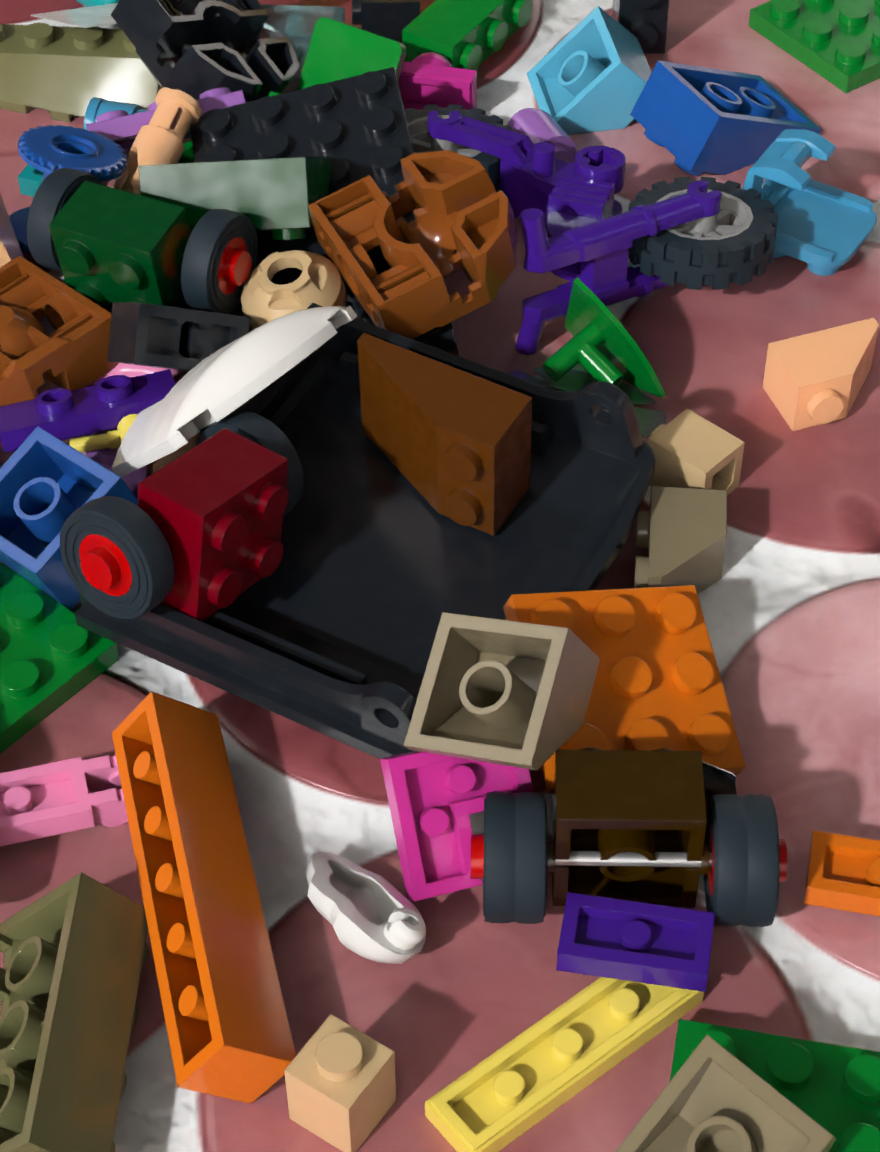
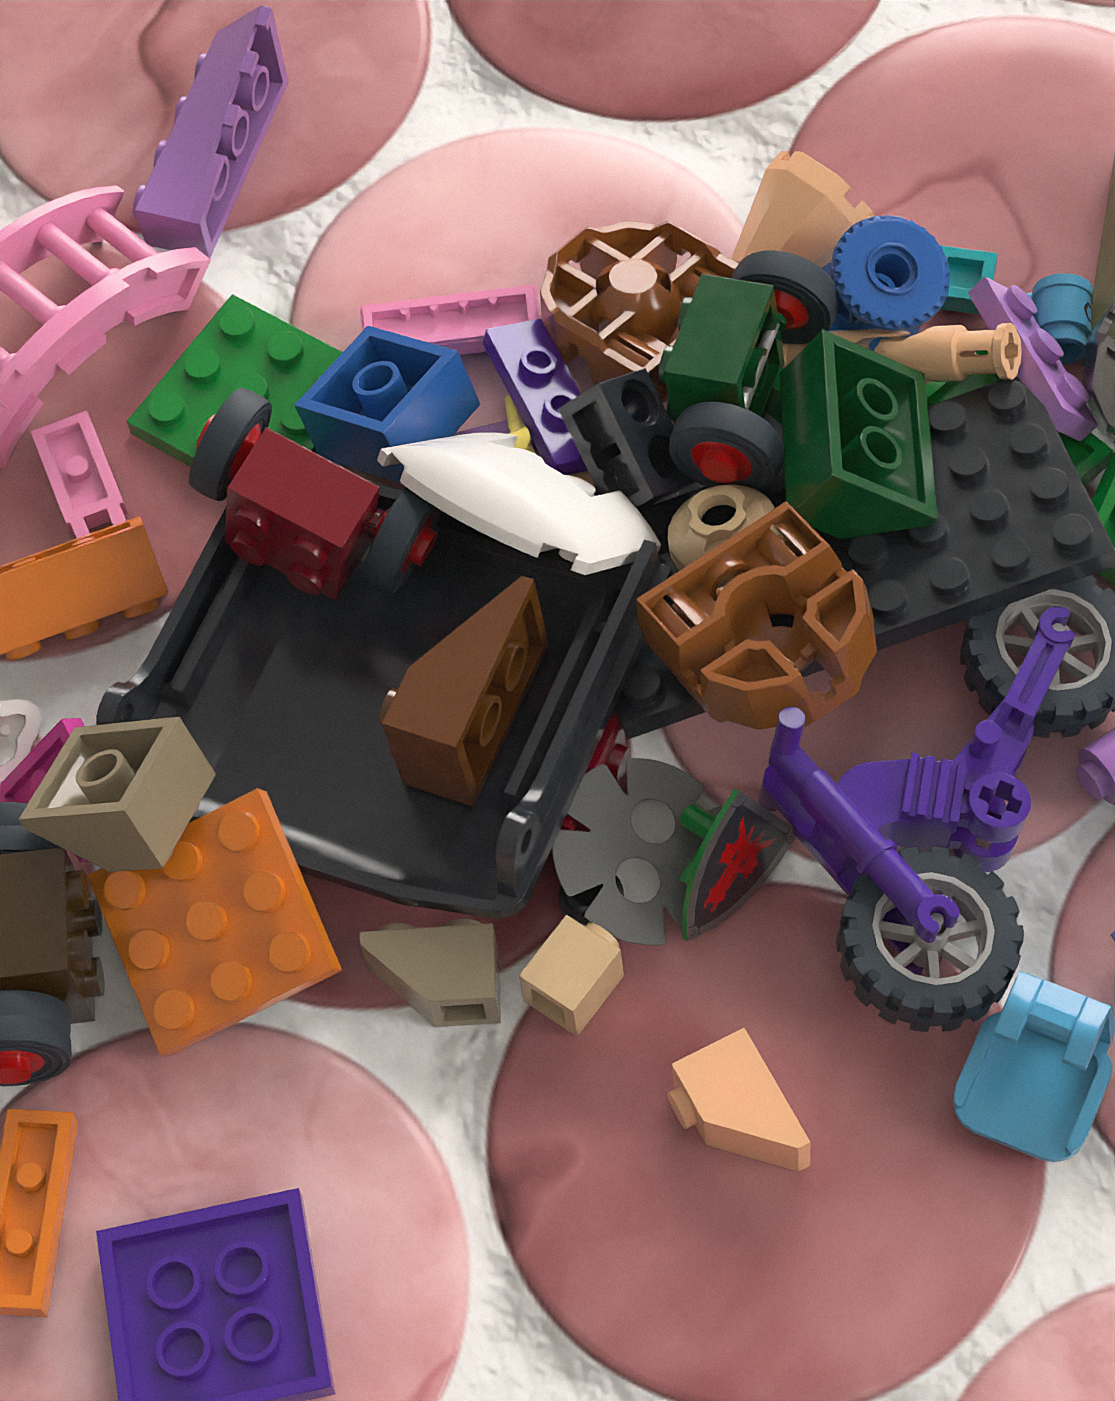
camera: 90 degrees right, 15 degrees up
(718, 780) = (109, 1017): black sticker -> none

